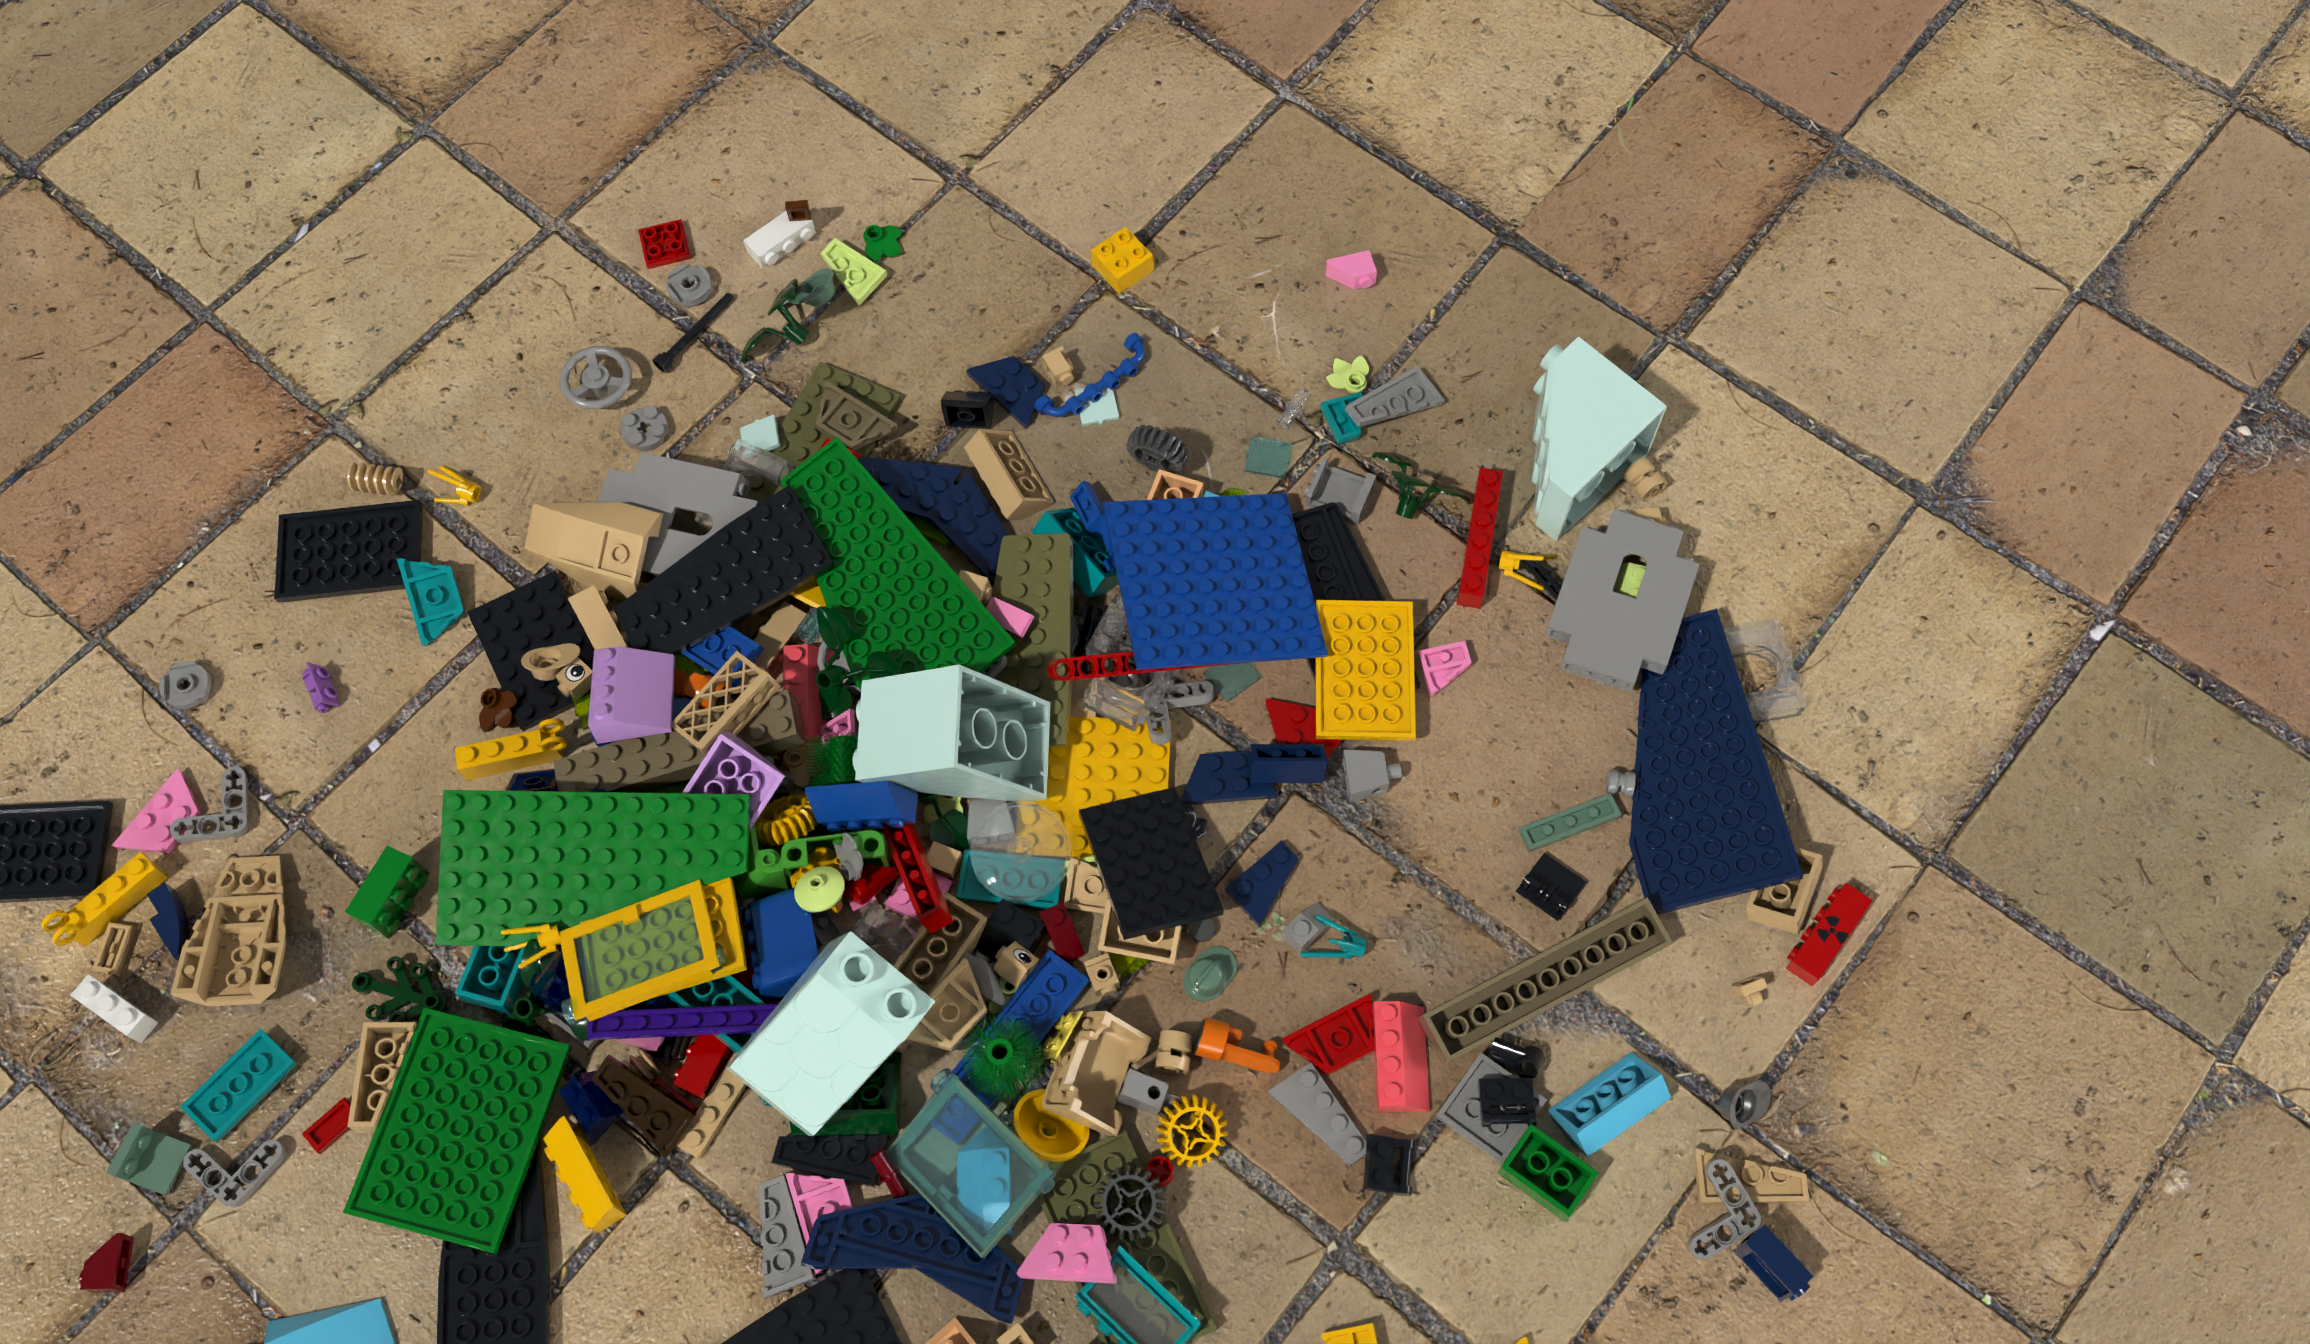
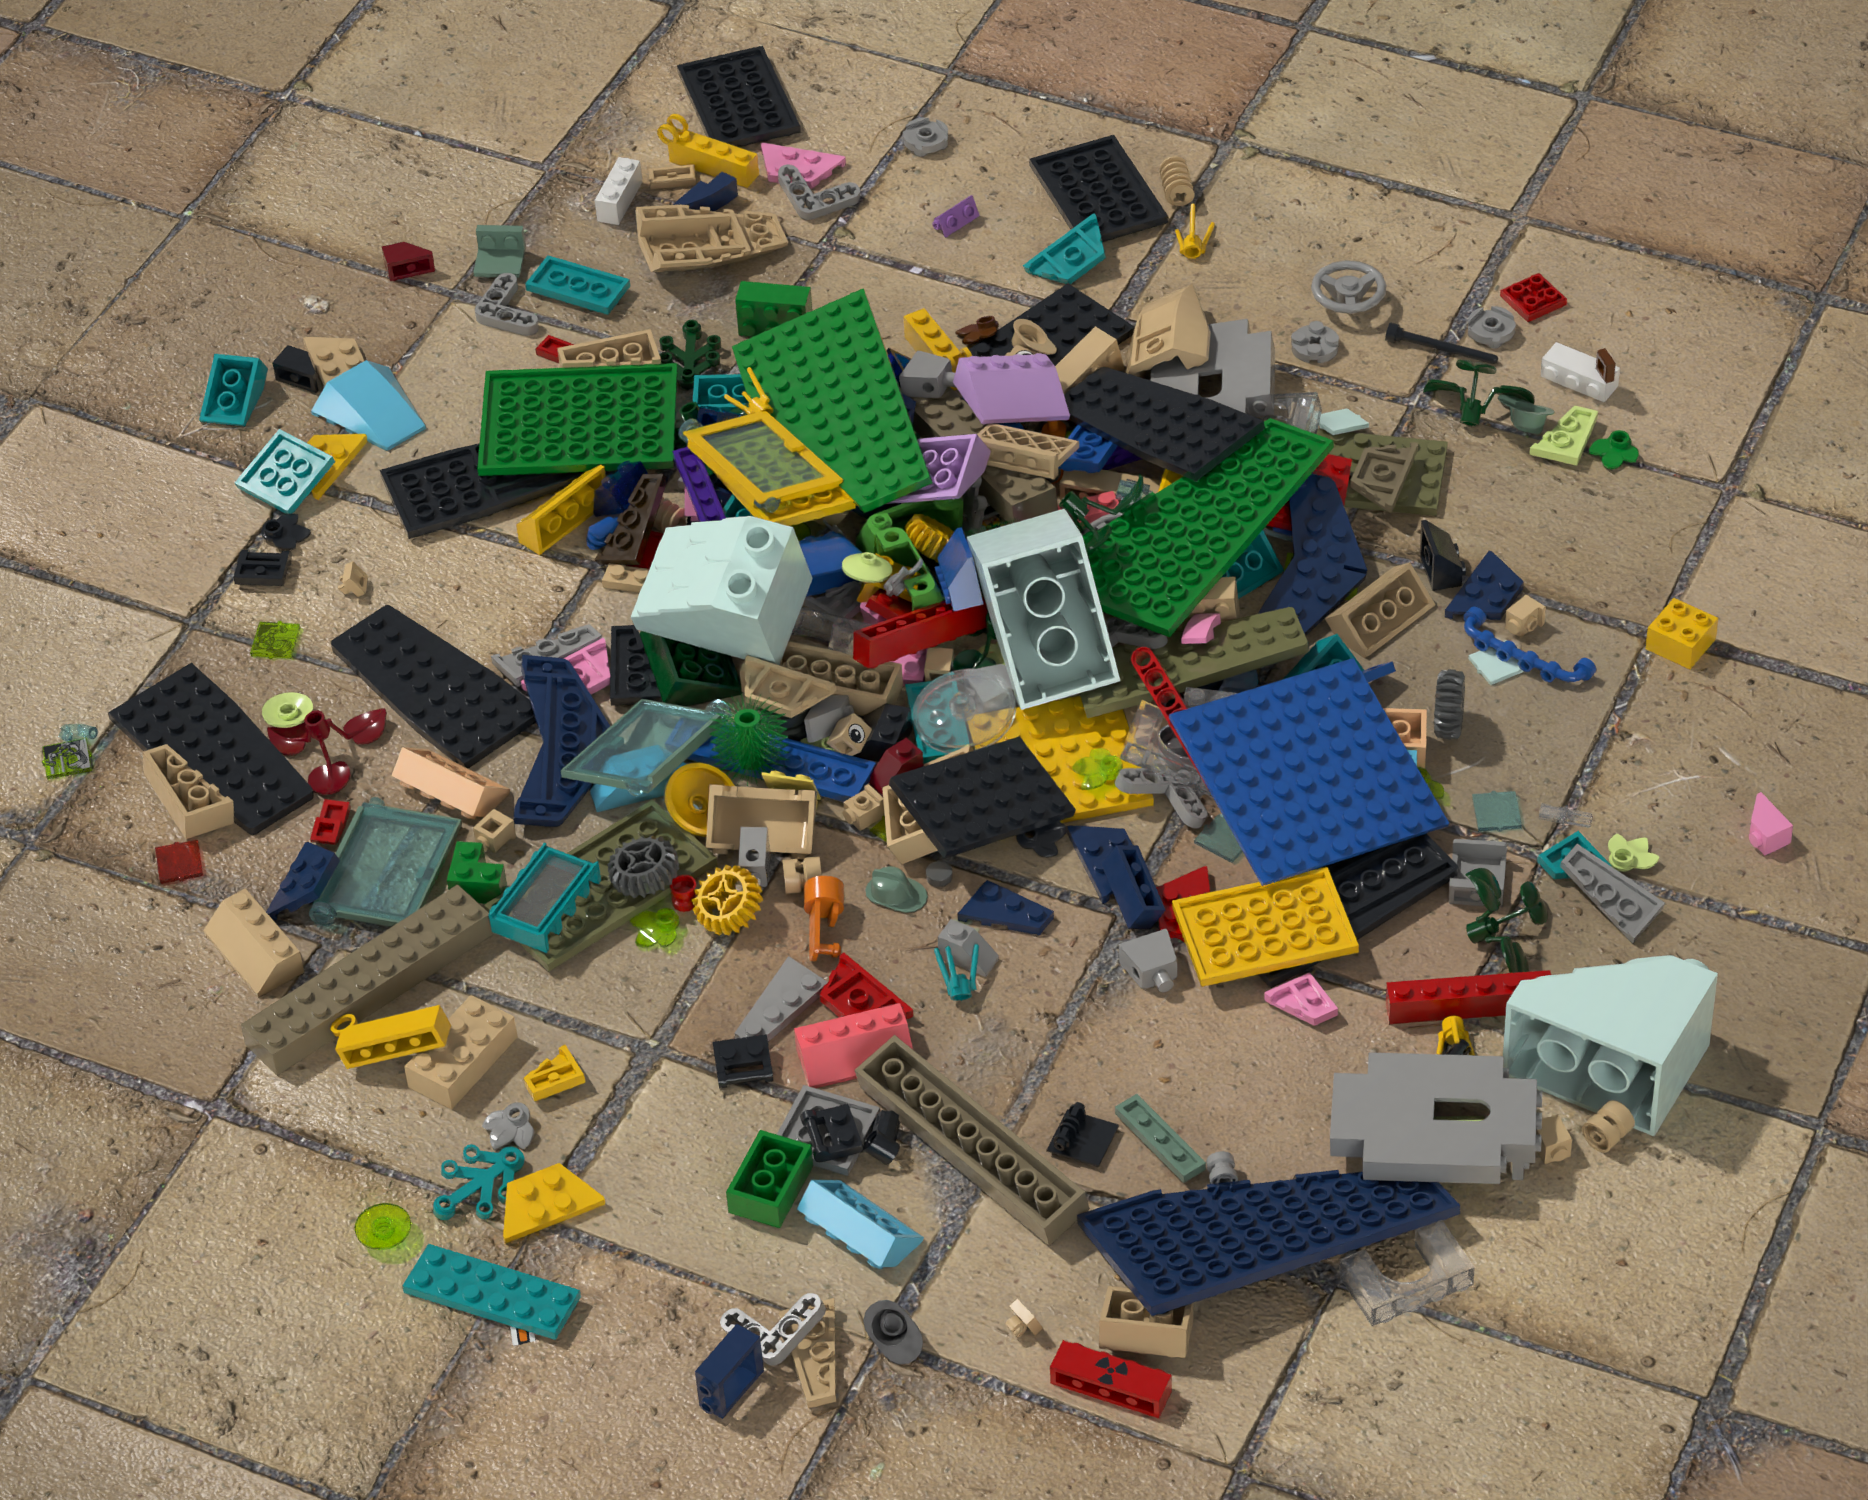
camera: 75 degrees right, 20 degrees down
(570, 764) = (926, 376): none -> light grey torso
(630, 1139) = (599, 532): none -> blue arm
(889, 1174) = (624, 703): dark red axle -> none
(1070, 1254) = (582, 834): bright pink wing -> none
(1127, 758) = (1097, 768): none -> clear neon green plate
(1192, 1214) = (656, 927): none -> clear neon green plate

